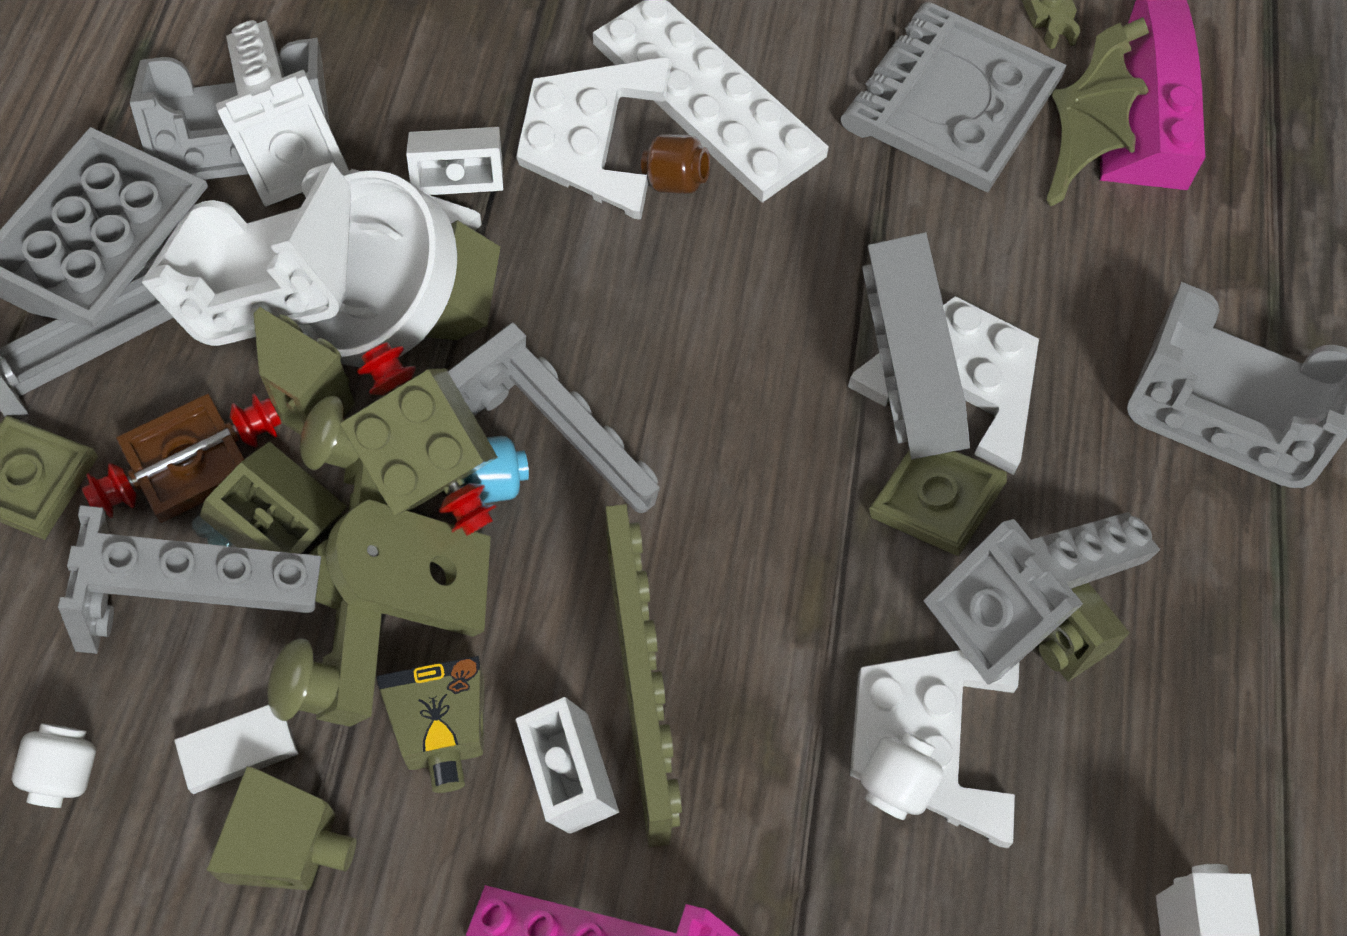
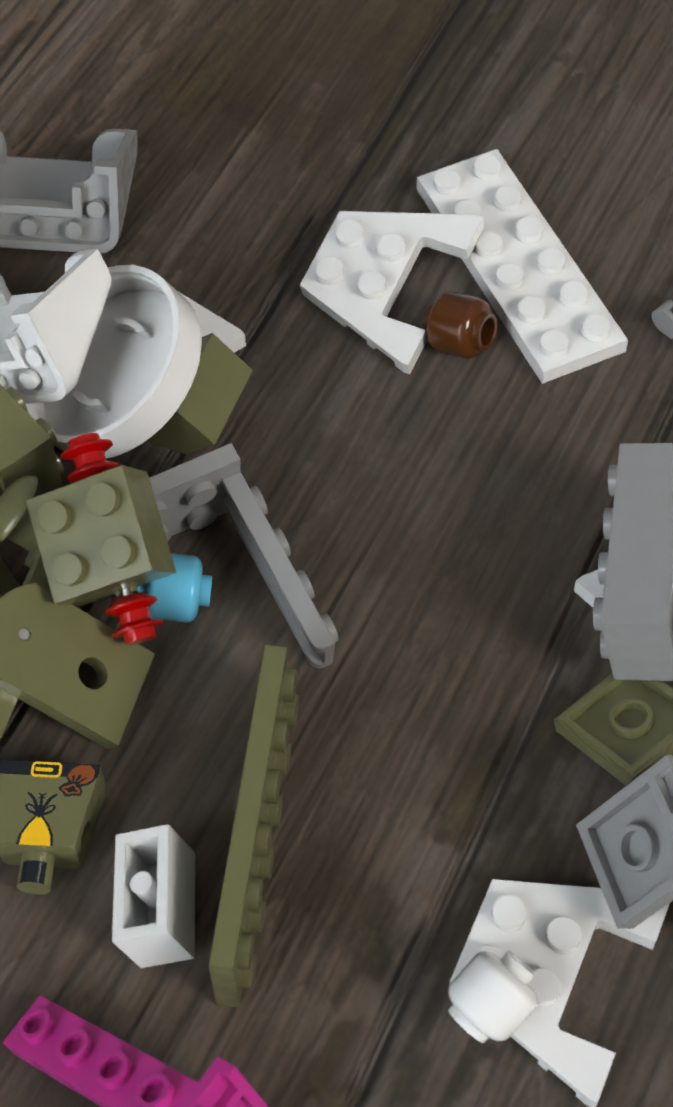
camera: 20 degrees right, 5 degrees down
(274, 117) = (68, 197): white bracket -> none
(455, 160) = (235, 276): white brick -> none

